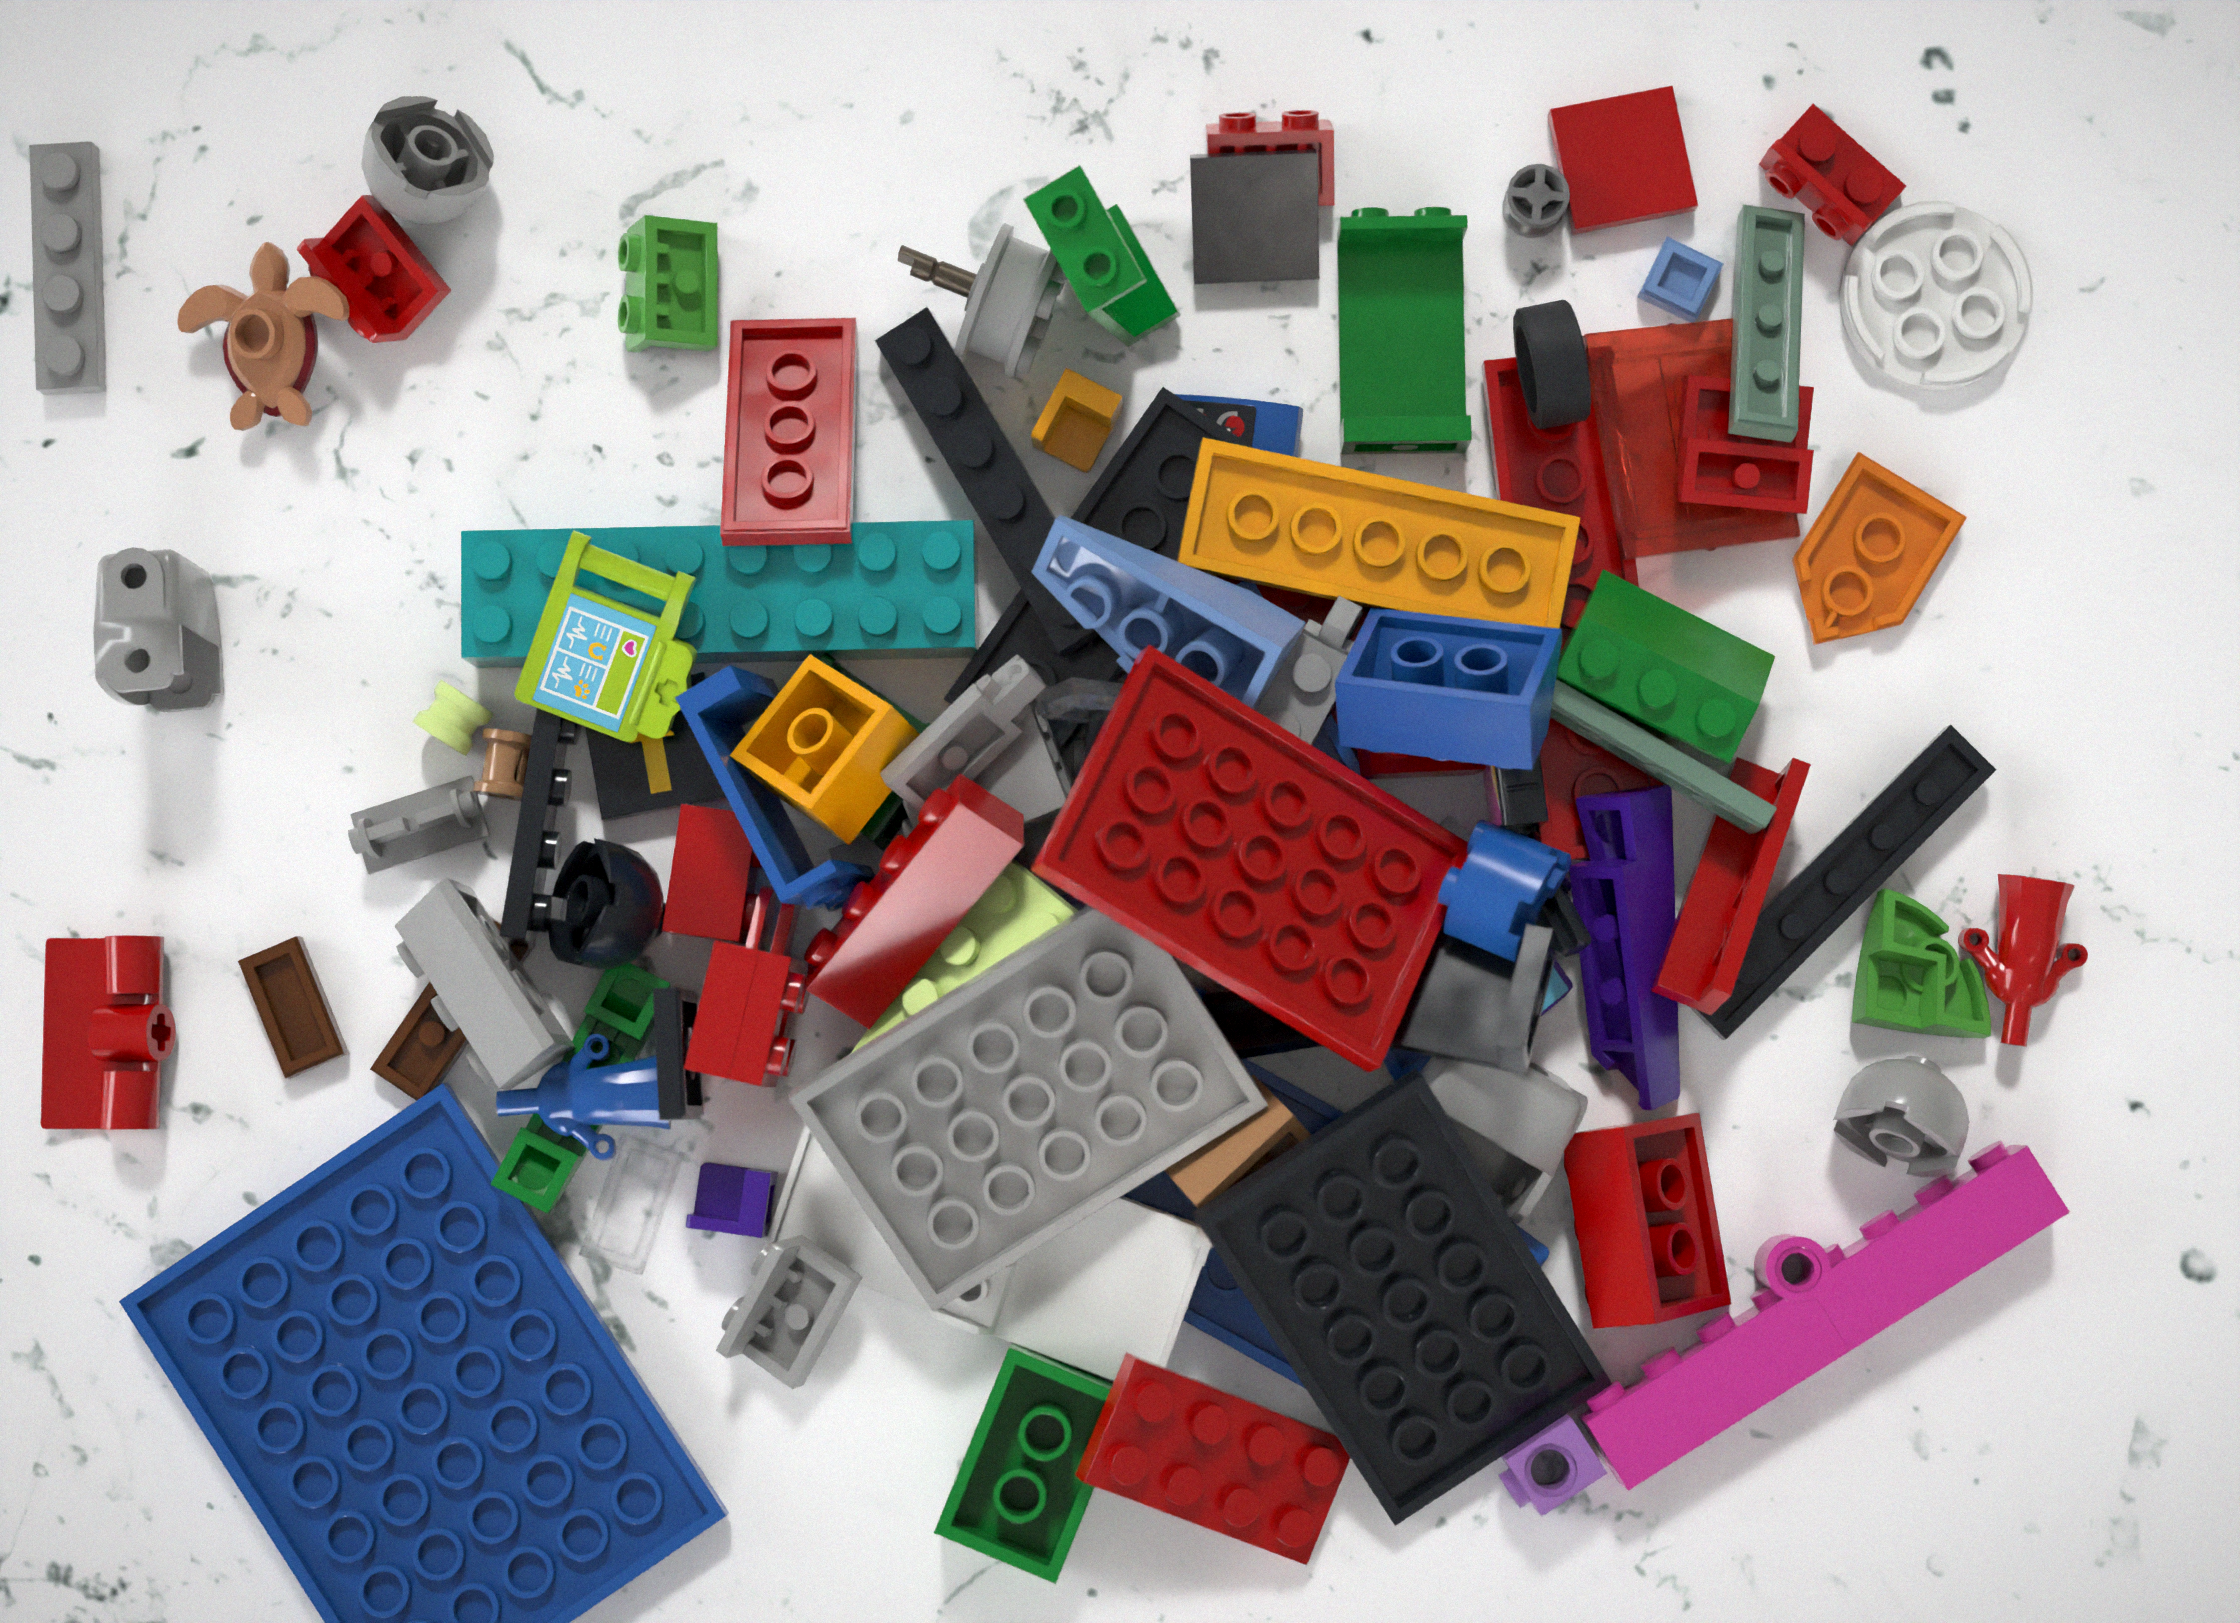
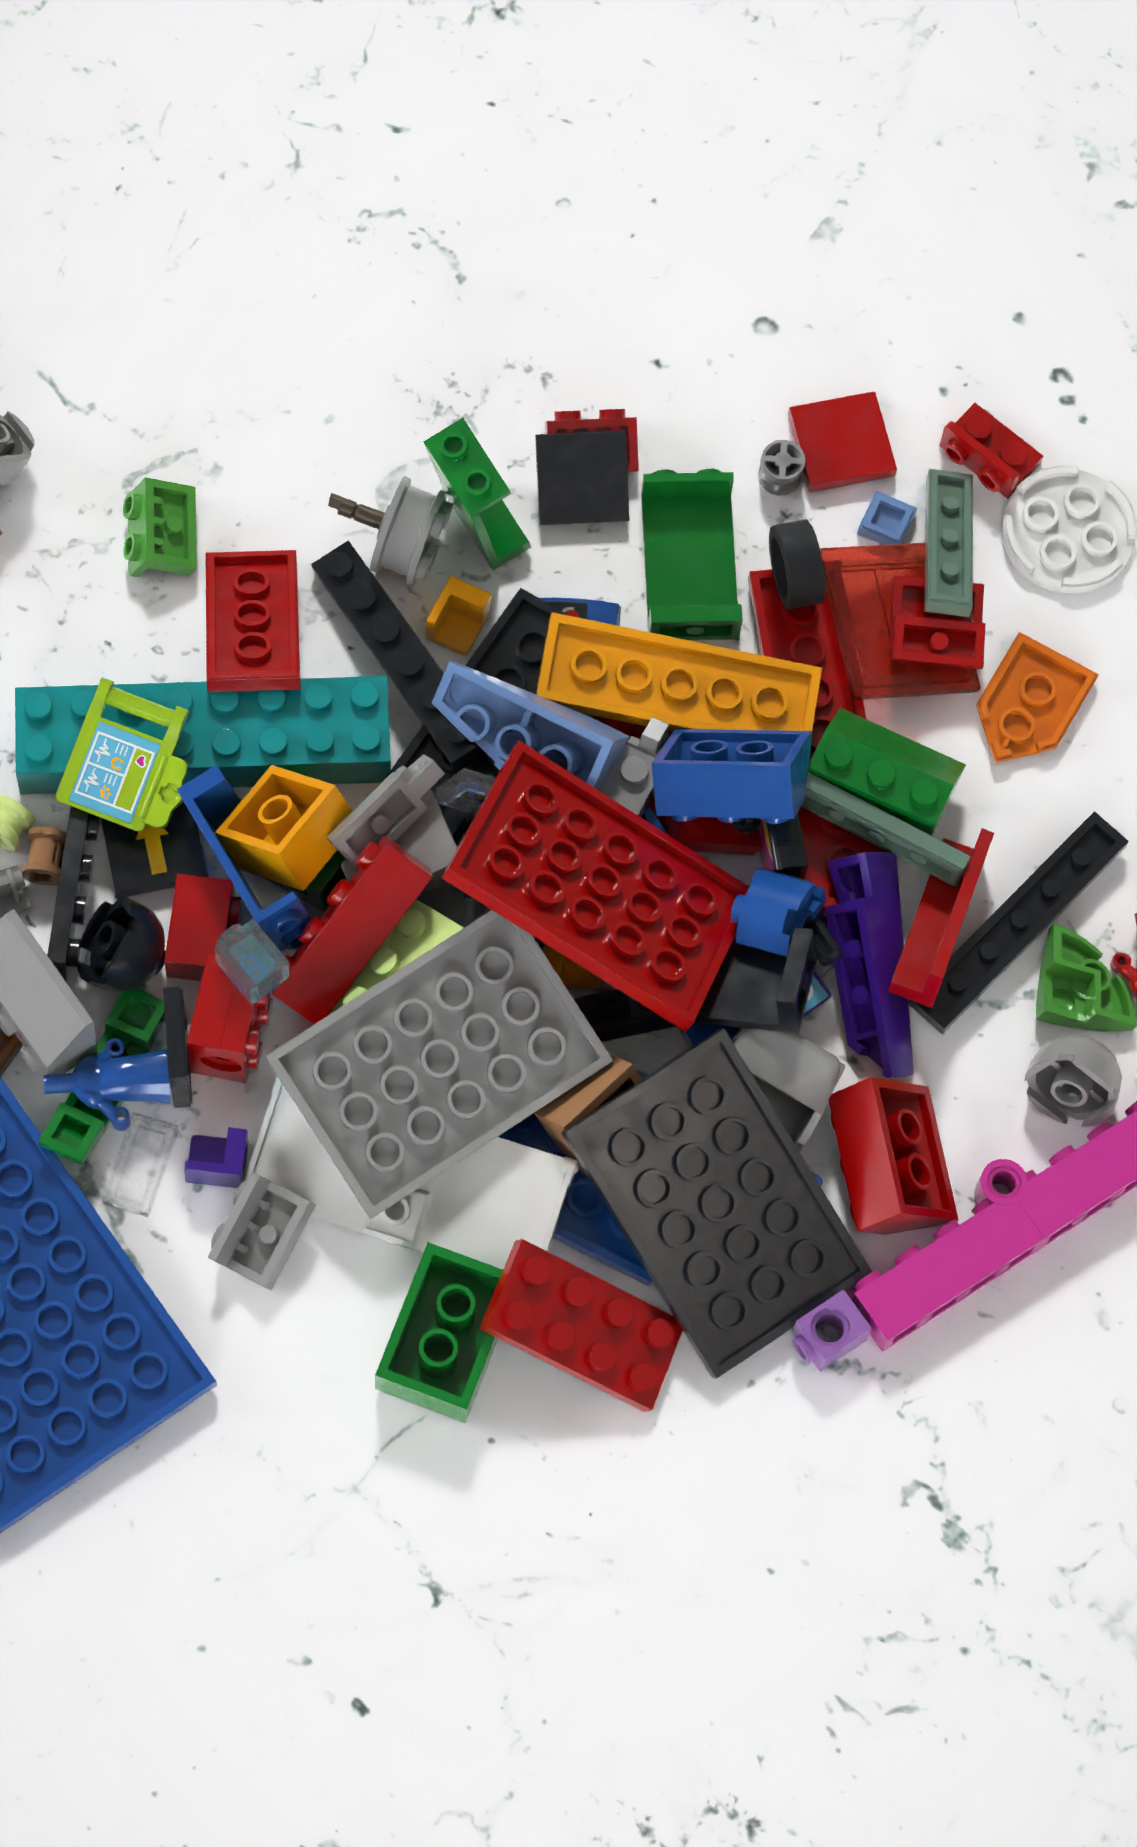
camera: 15 degrees left, 15 degrees down
(769, 960) = (251, 960): none -> clear light blue brick

